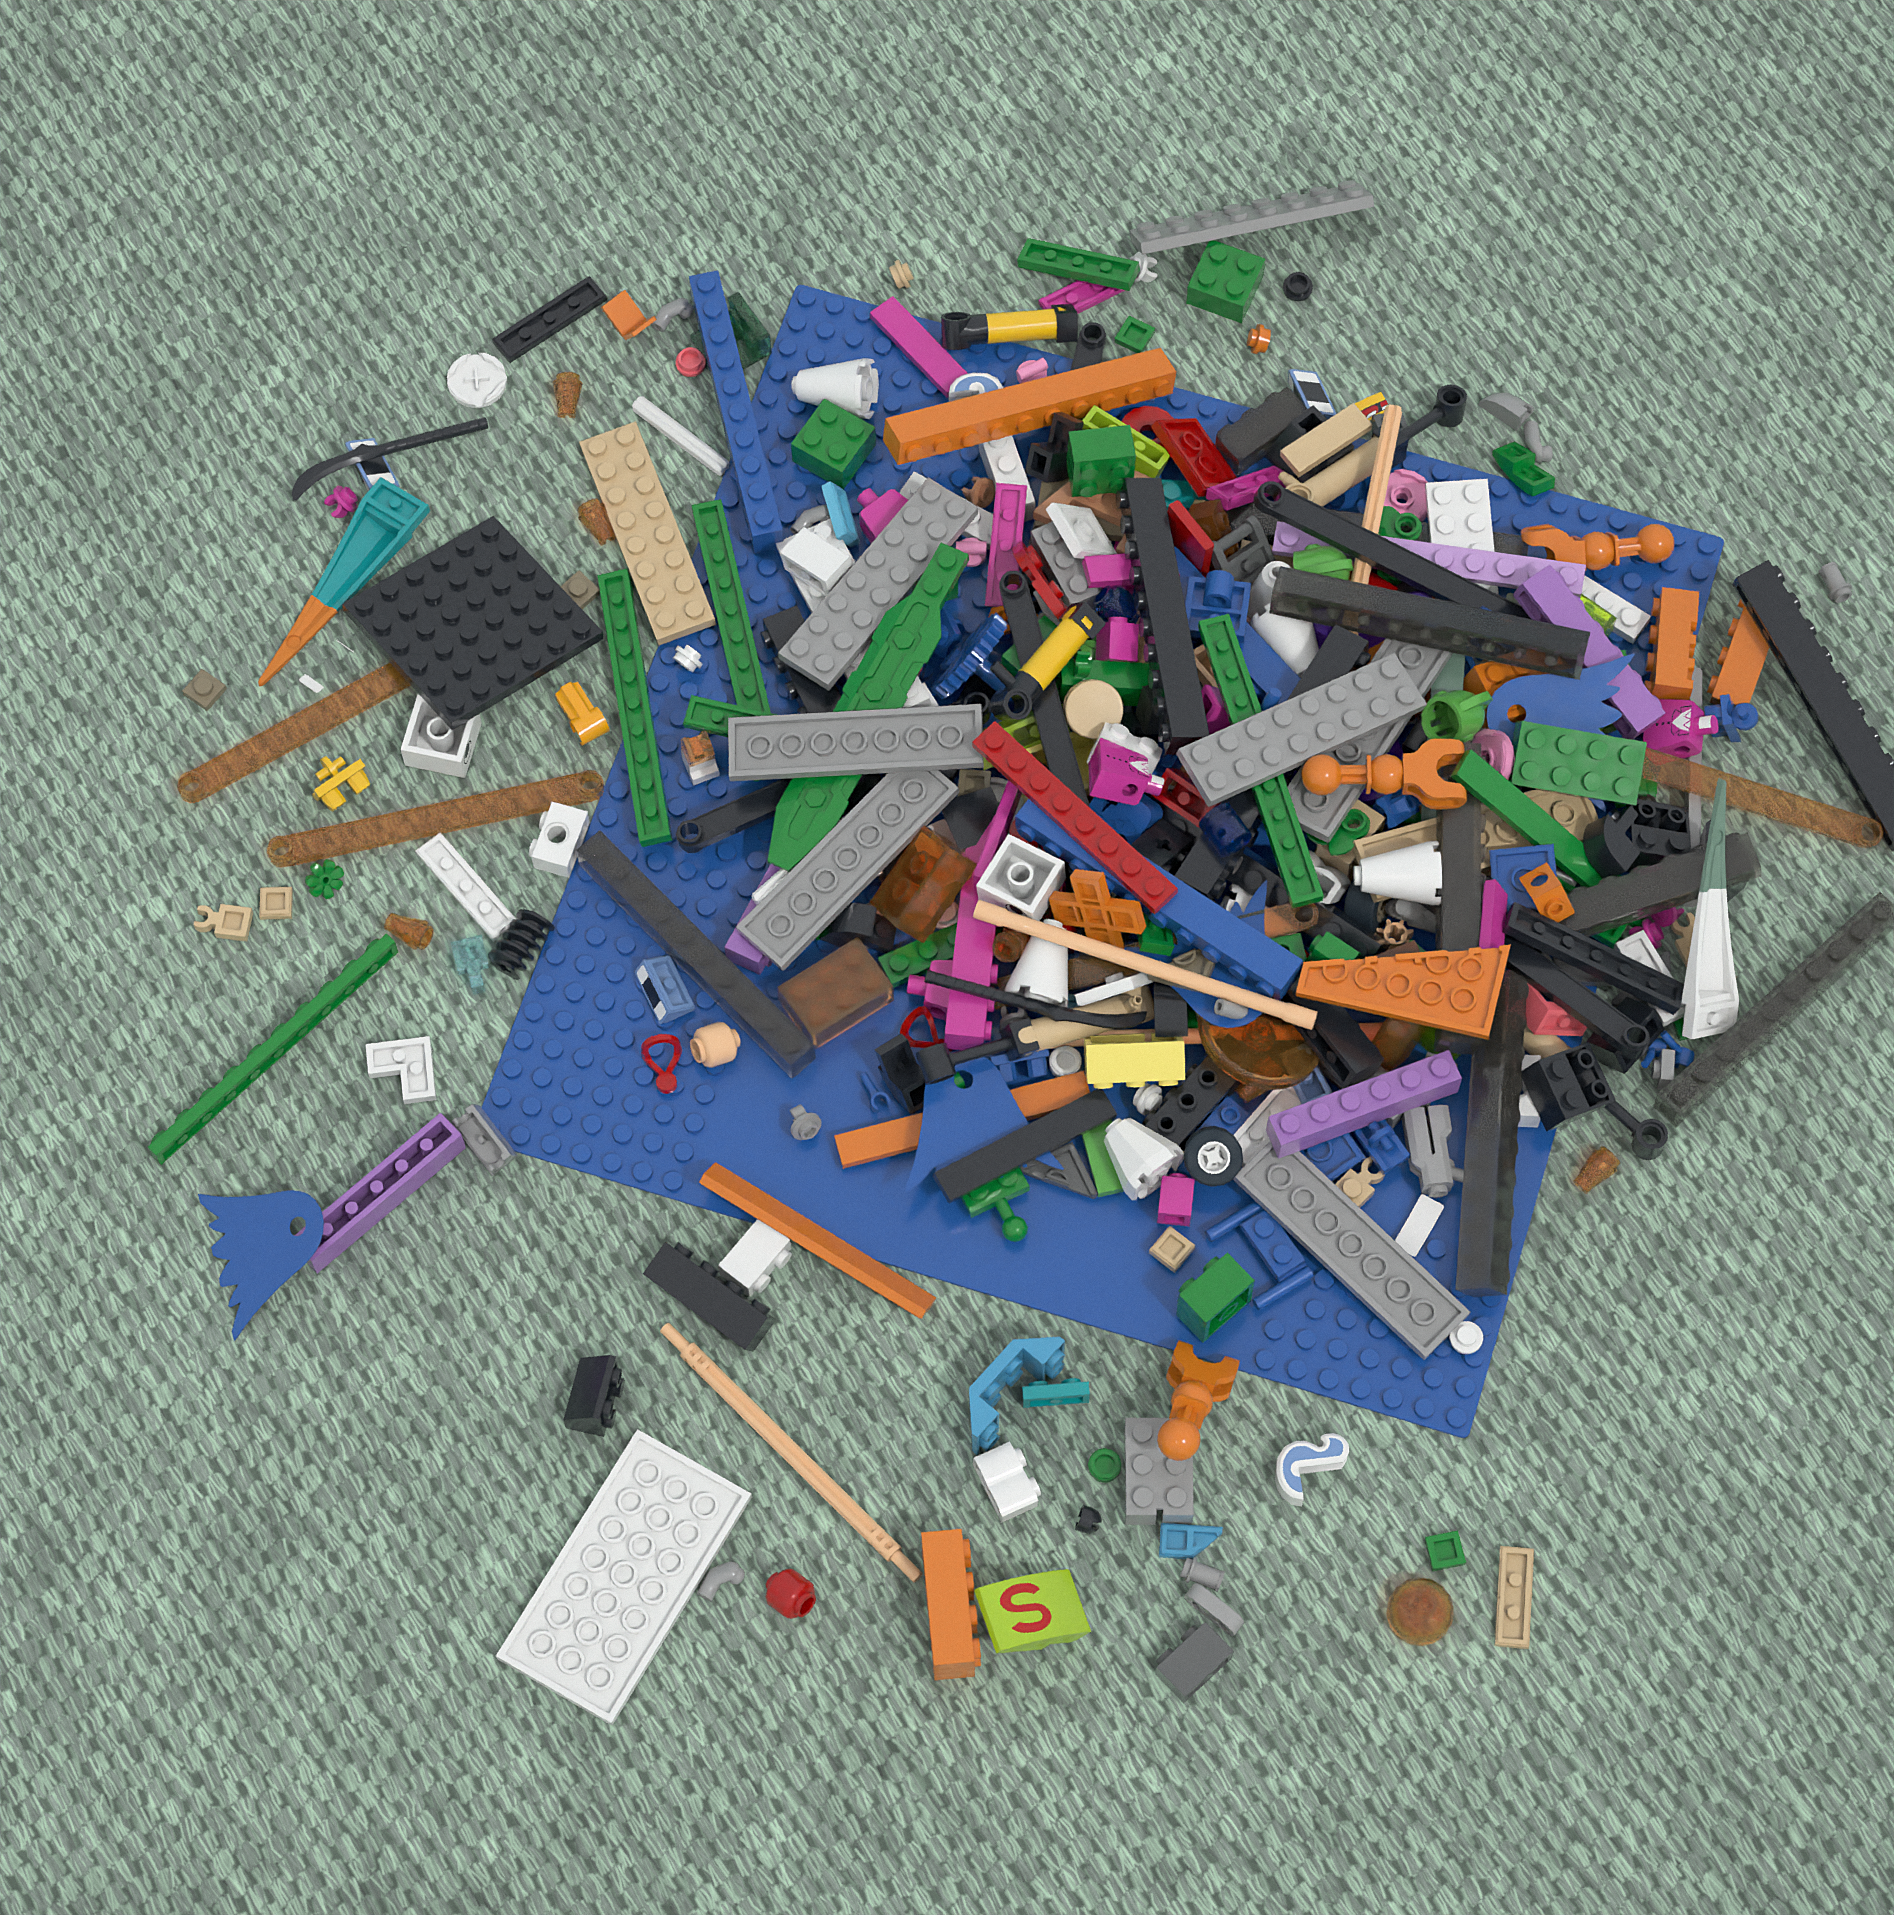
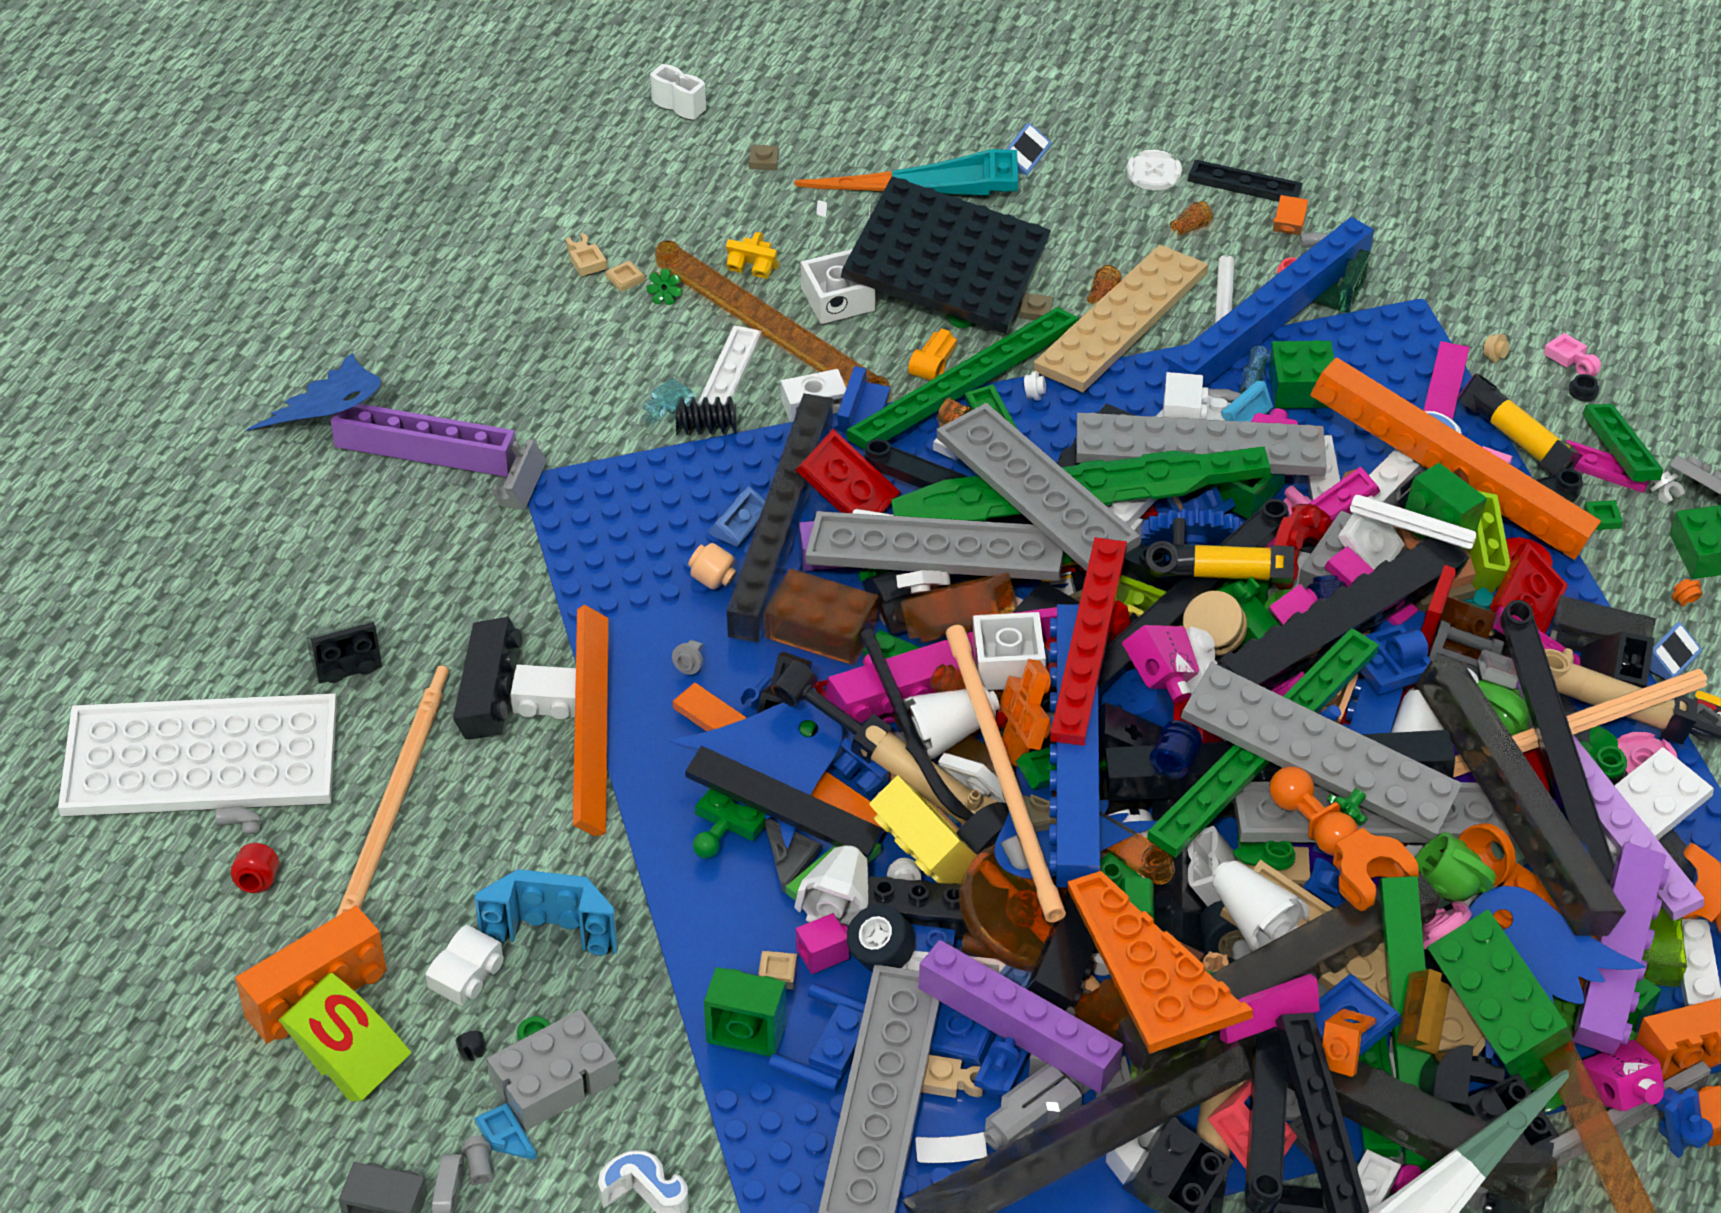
camera: 55 degrees right, 20 degrees down
(61, 710) = (678, 91): none -> white brick
(263, 1056) = (502, 328): green plate -> none
(291, 733) = (761, 212): clear orange piece -> none
(346, 501) = (982, 143): dark pink plate -> none
(368, 452) = (1031, 136): black piece -> none
(407, 1058) = (551, 407): white plate -> none
(412, 931) = (664, 356): clear orange cone -> none
(609, 808) = (860, 399): none -> blue panel
(666, 1081) = (660, 559): red piece -> none
(701, 878) = (846, 477): none -> red tile
(730, 606) = (1105, 386): green plate -> none
(799, 479) = (1255, 368): none -> clear light blue pin
(846, 384) = (1360, 348): white cone -> none
(881, 895) = (922, 580): none -> white plate
(944, 225) = (1568, 351): none -> bright pink plate
(992, 244) = (1584, 387): none -> black plate
(1068, 1392) = (569, 952): teal plate -> none
(1107, 494) = (1413, 521): none -> white axle
(1196, 1388) = (650, 1046): orange piece -> none
(1284, 542) = (1497, 669): none -> light grey tile
(1326, 440) = (1628, 658): tan tile -> none
(1365, 745) = (1351, 805): none -> green plant
(1472, 679) = (1480, 839): none -> orange piece
(1561, 827) = (1423, 1011): none -> pearl gold panel

